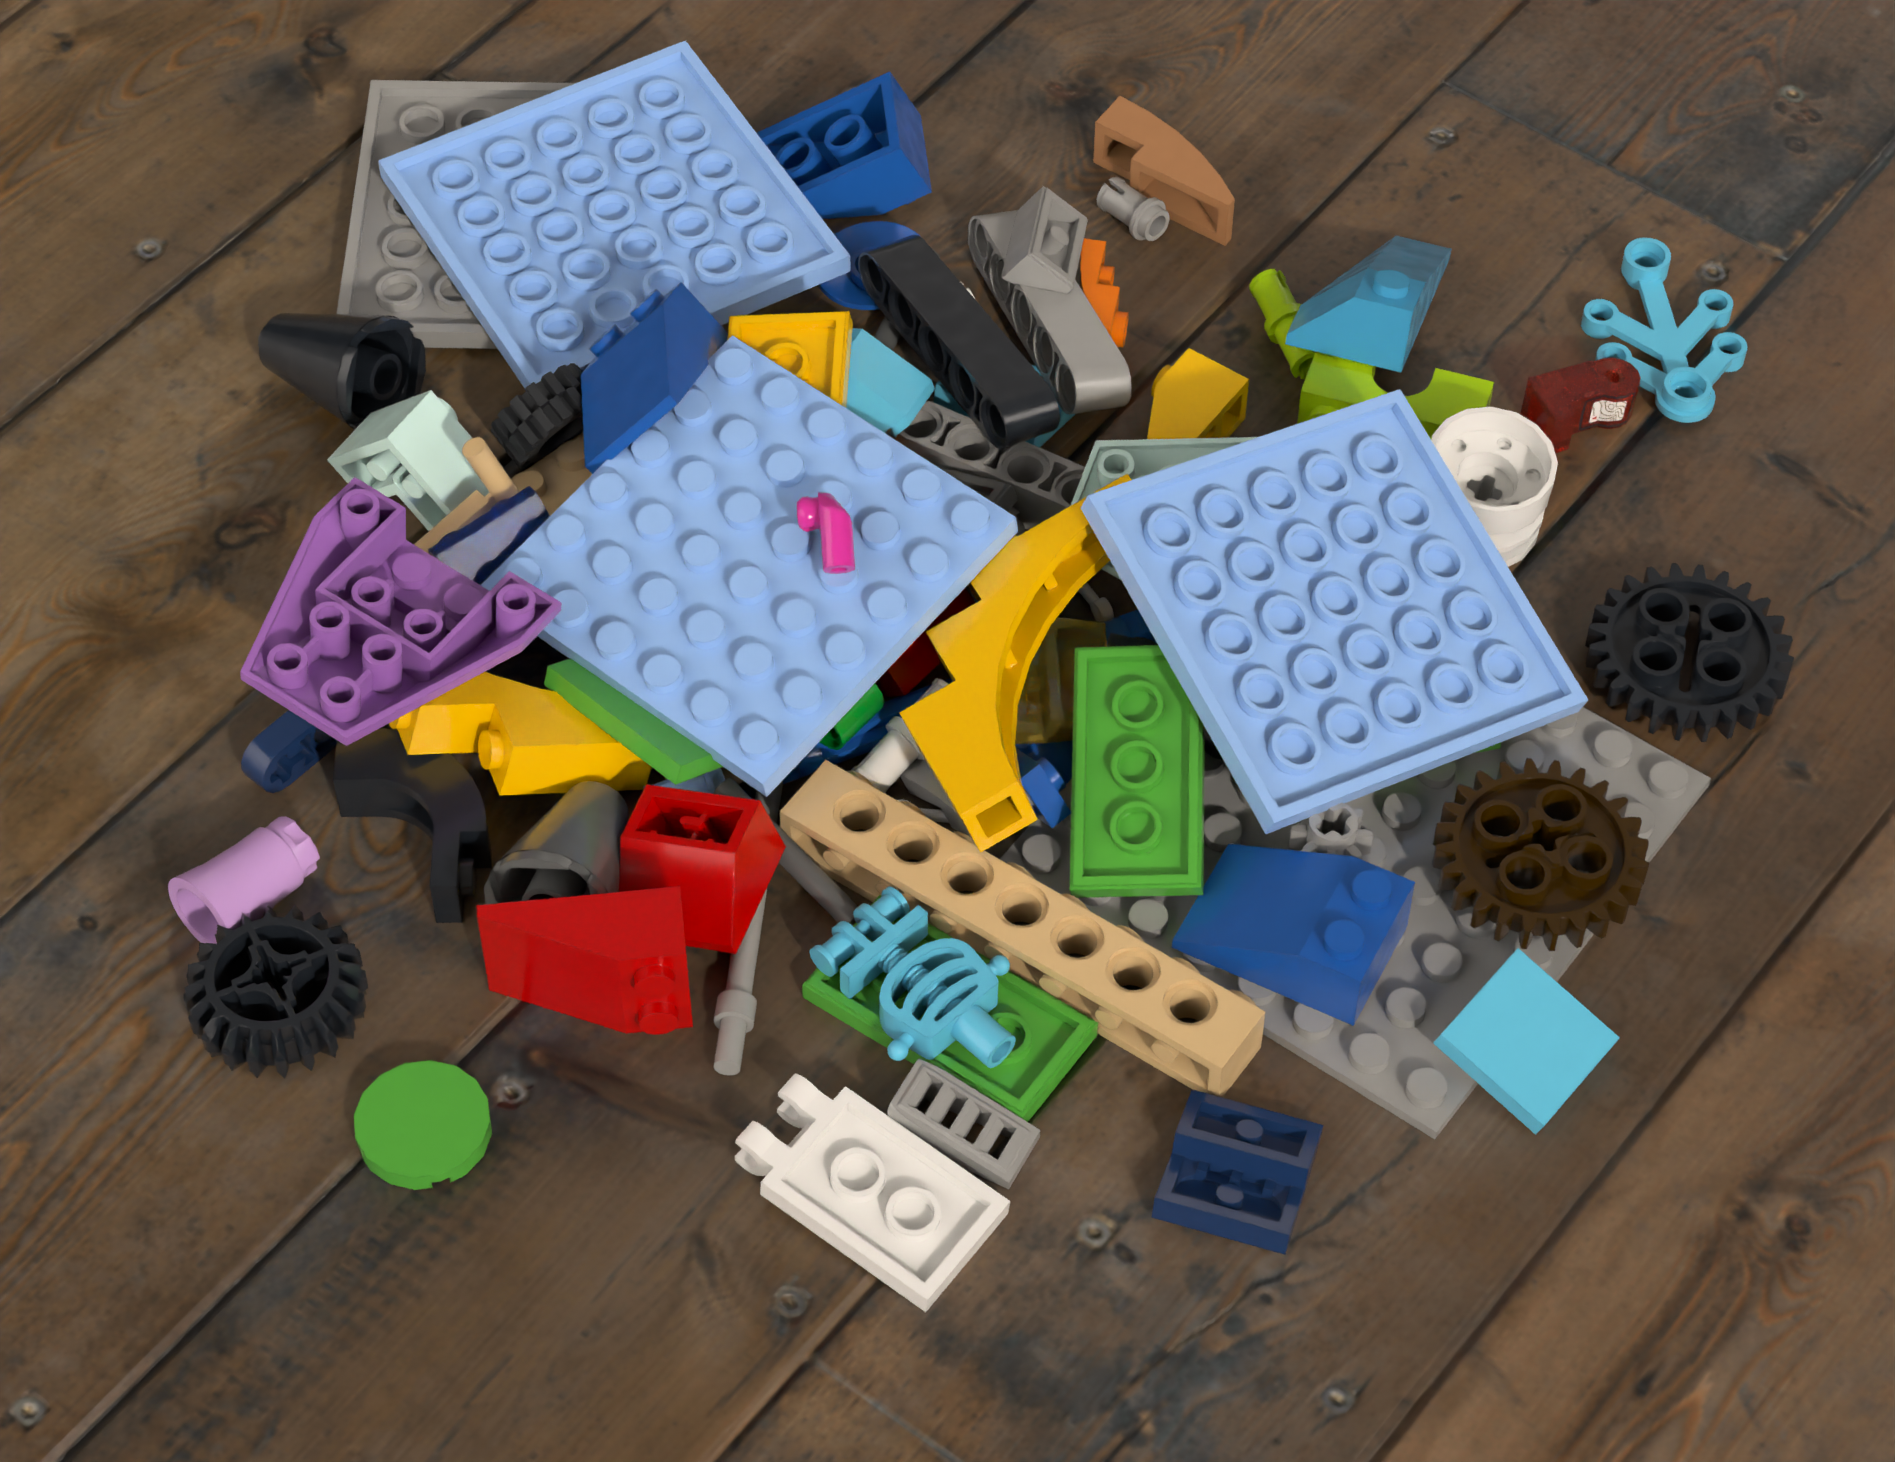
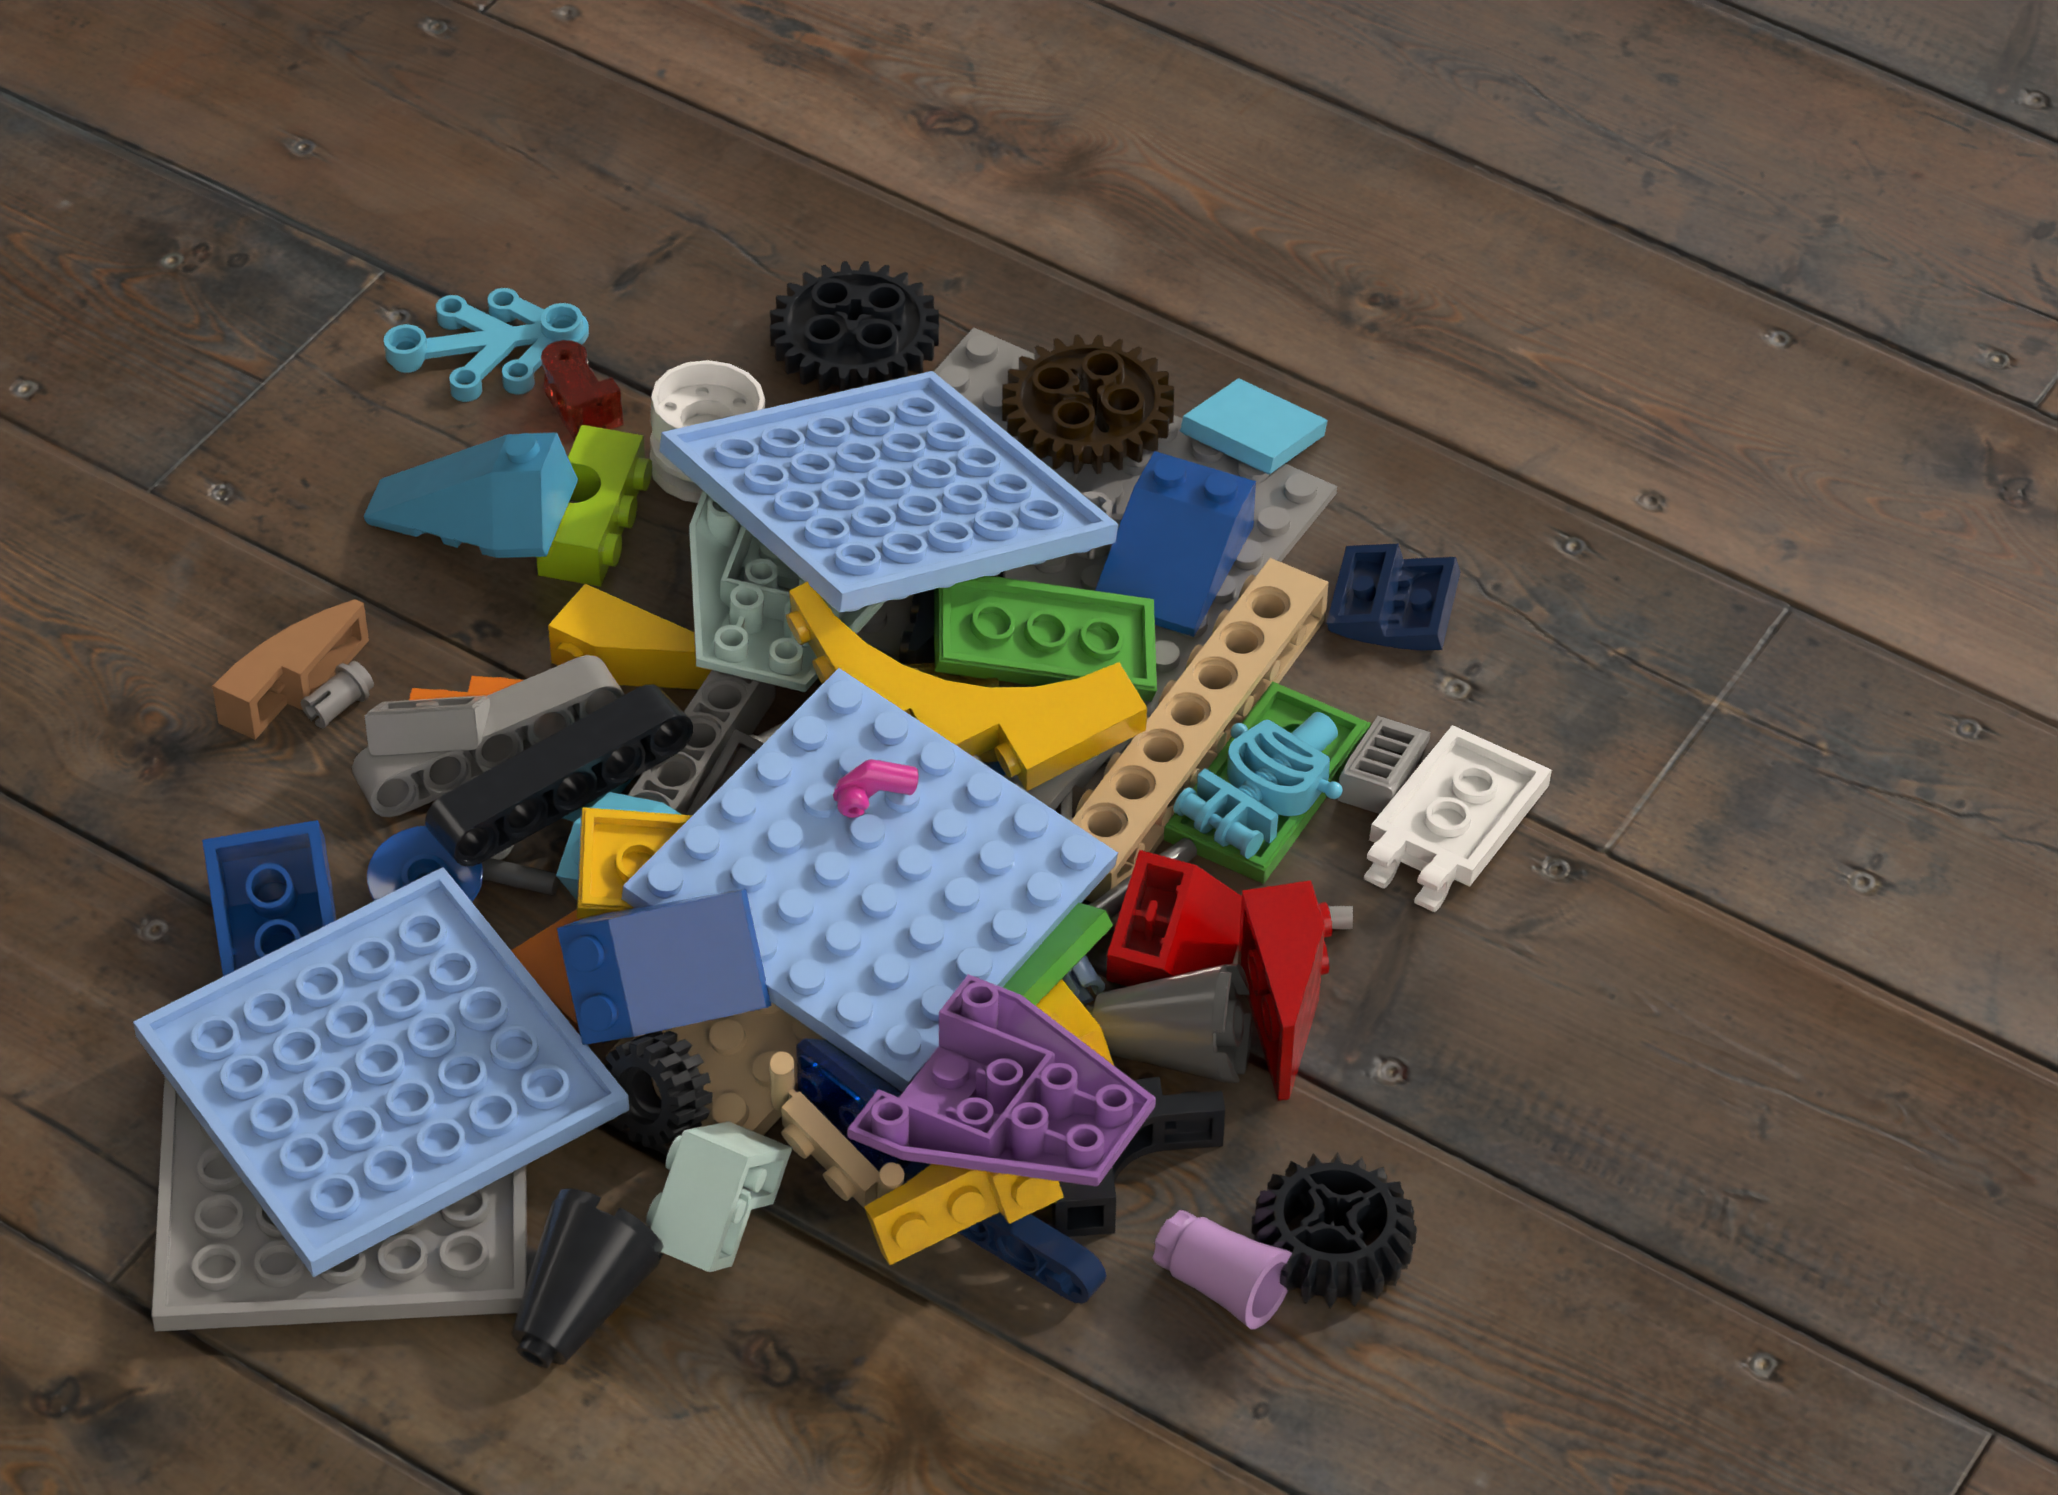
camera: 95 degrees left, 5 degrees down
(422, 1124) = (1442, 1118): bright green tile -> none
(1280, 309) = (485, 581): lime pin -> none

